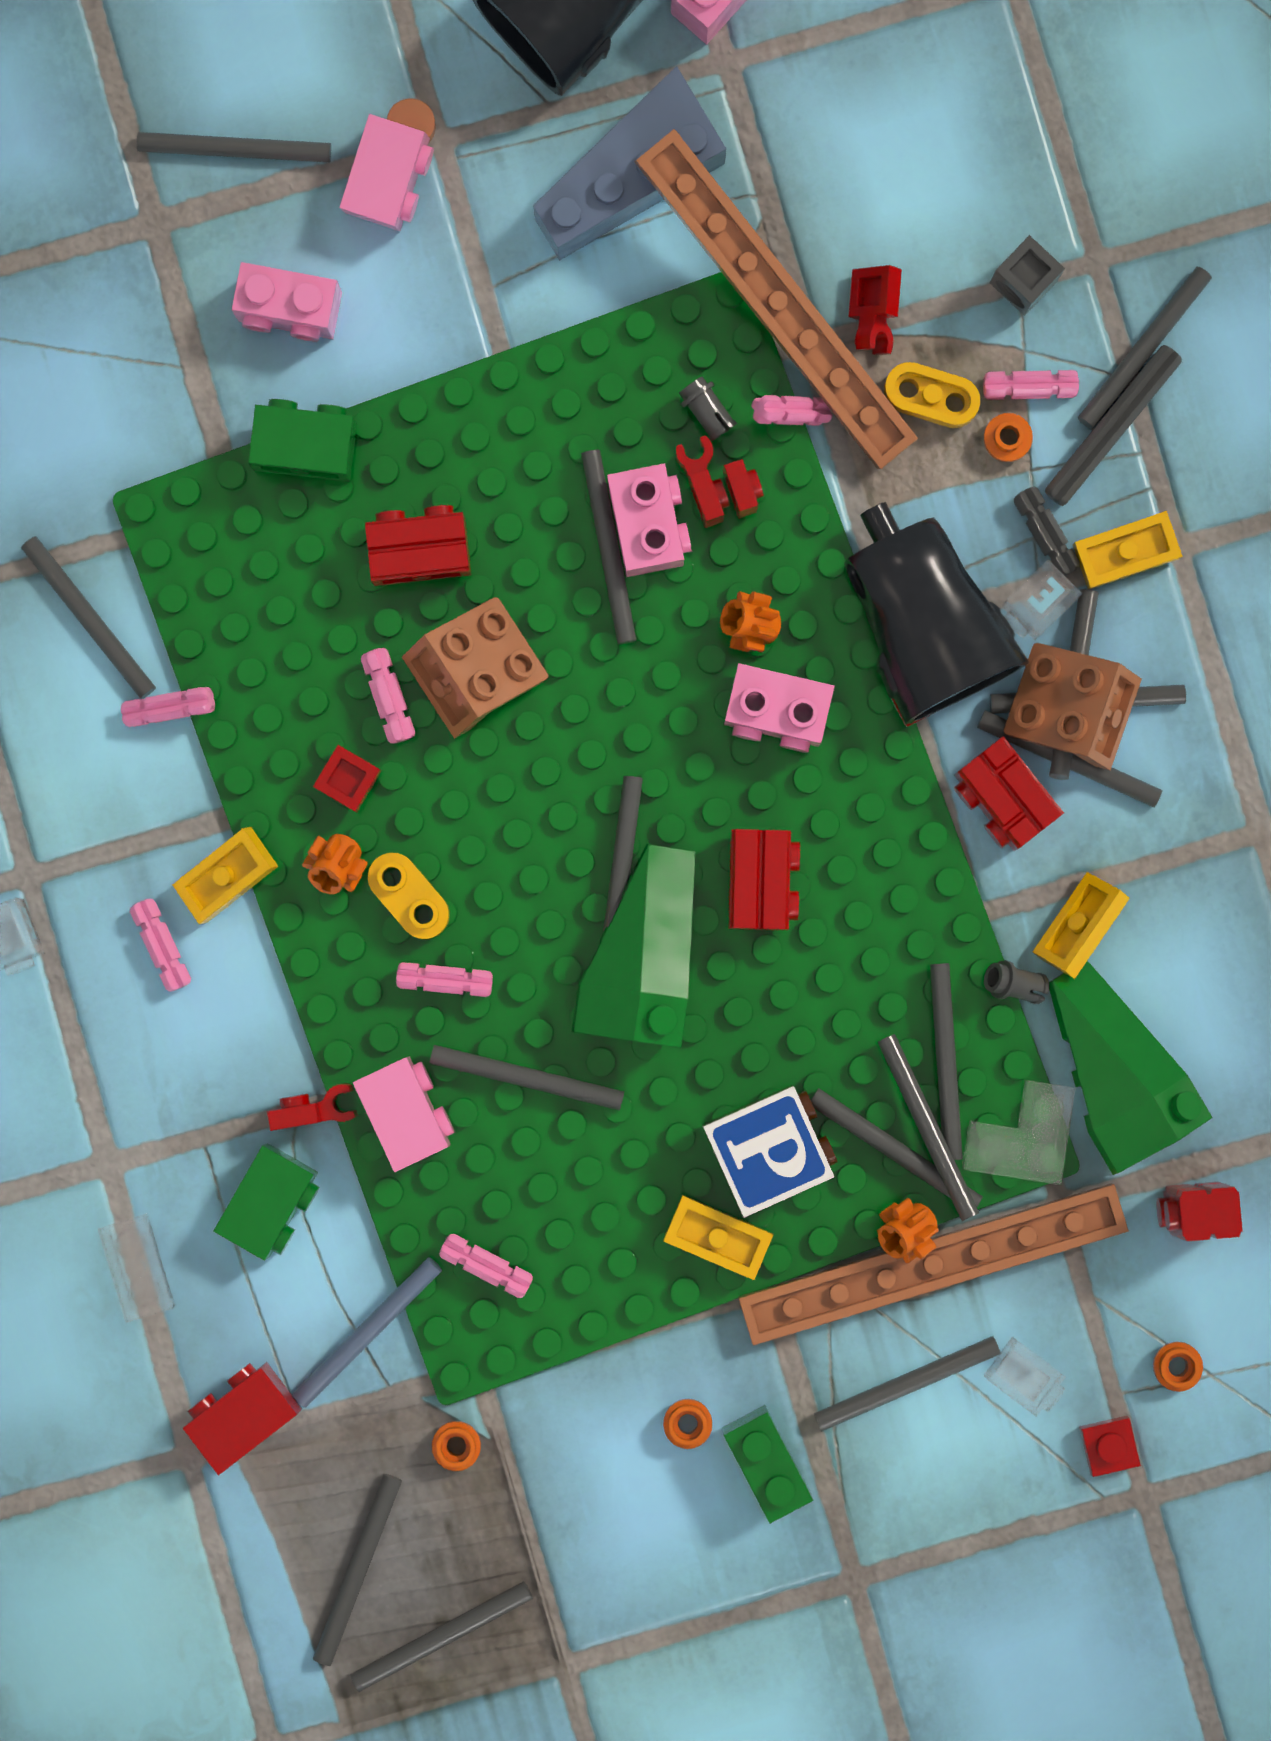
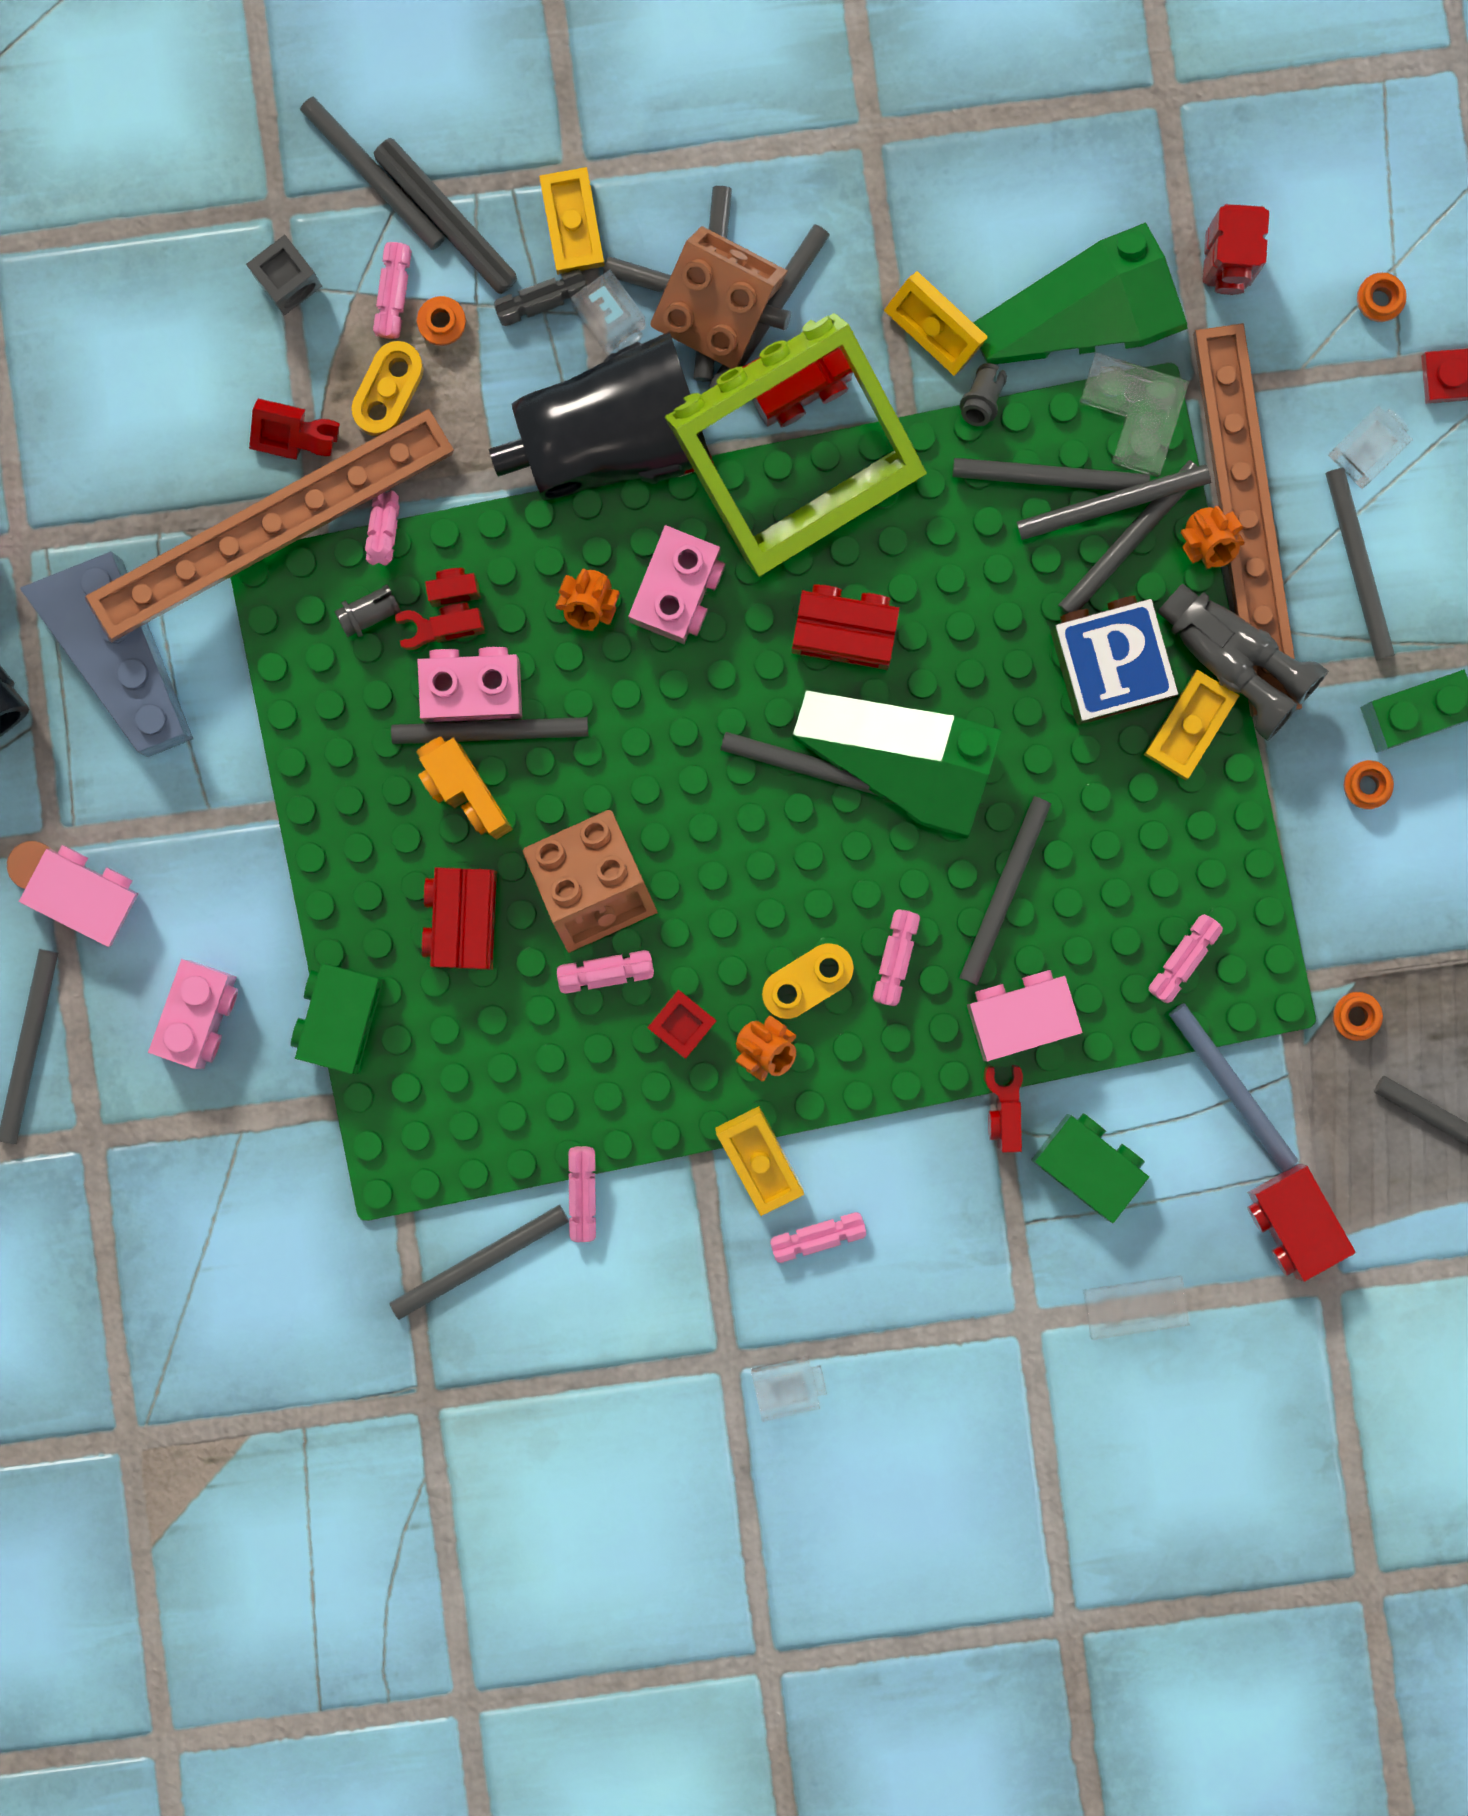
camera: 80 degrees left, 0 degrees up
(555, 517) = (454, 779): none -> light orange plate
(801, 1268) = (1232, 648): none -> dark grey piece
(880, 850) = (835, 506): none -> lime window

